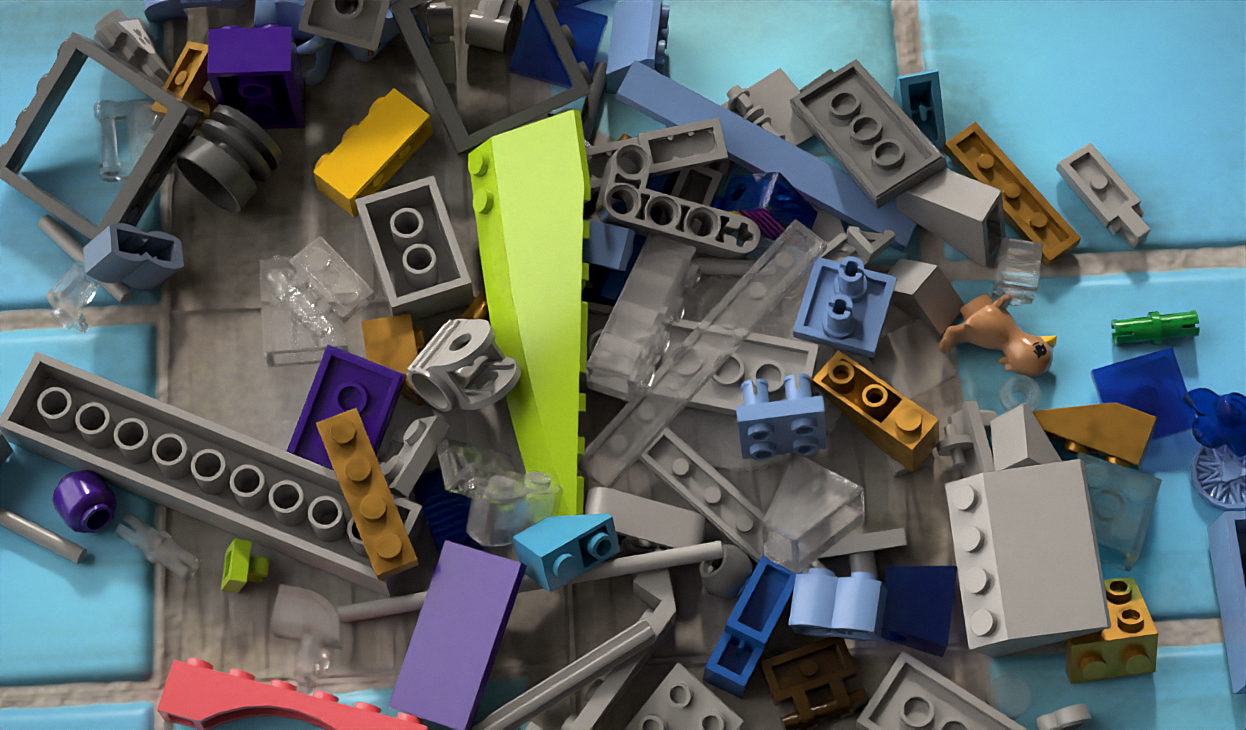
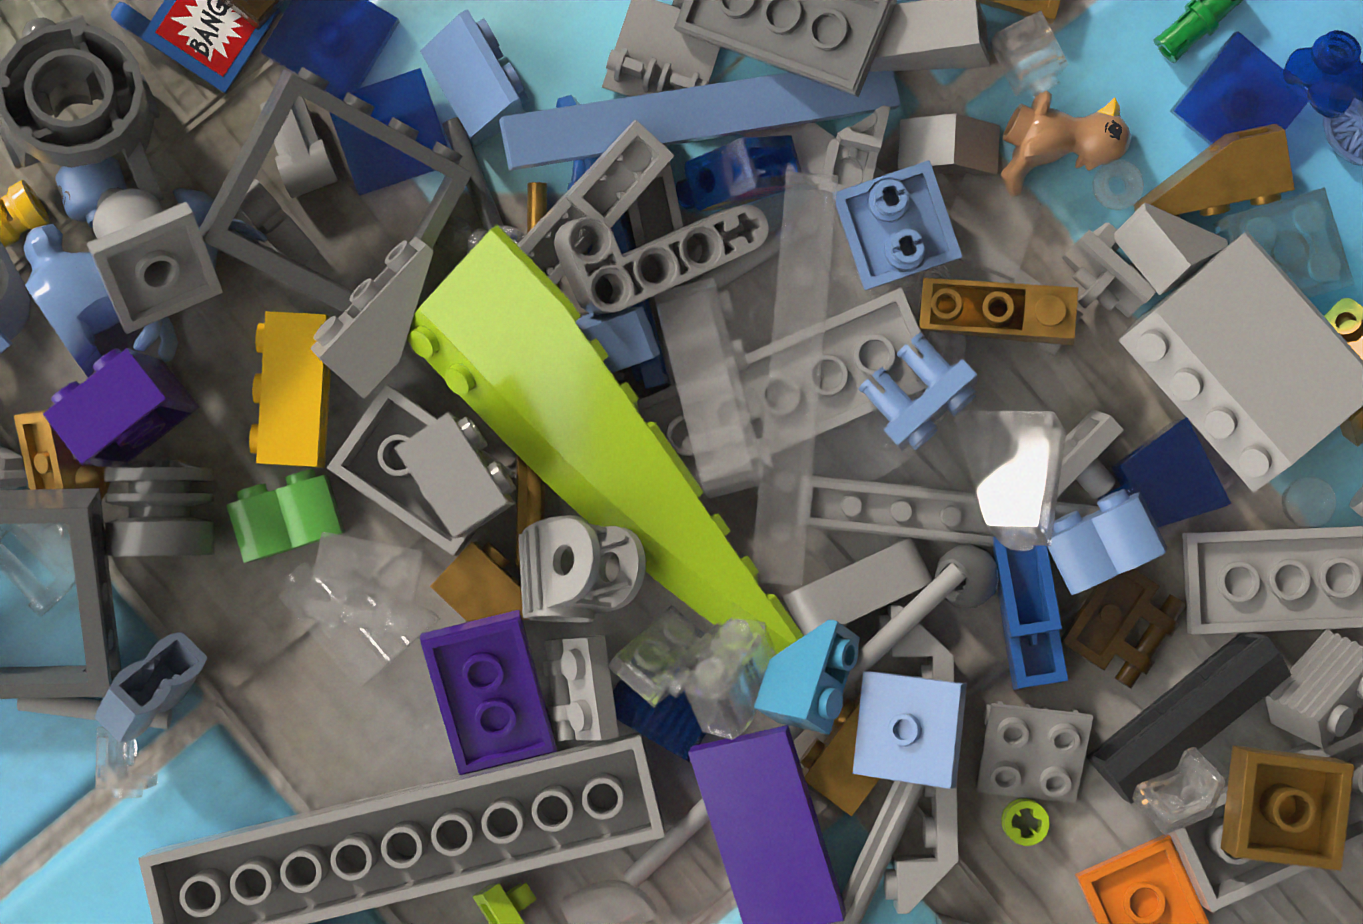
camera: 35 degrees left, 20 degrees up
(295, 219) = (285, 517): none -> bright green brick
(367, 494) = (580, 766): pearl gold plate -> none
(435, 246) = (456, 474): none -> light grey brick
(448, 138) = (374, 328): none -> light grey slope
(556, 634) = (831, 762): none -> pearl gold brick
(607, 626) = (909, 729): none -> plate

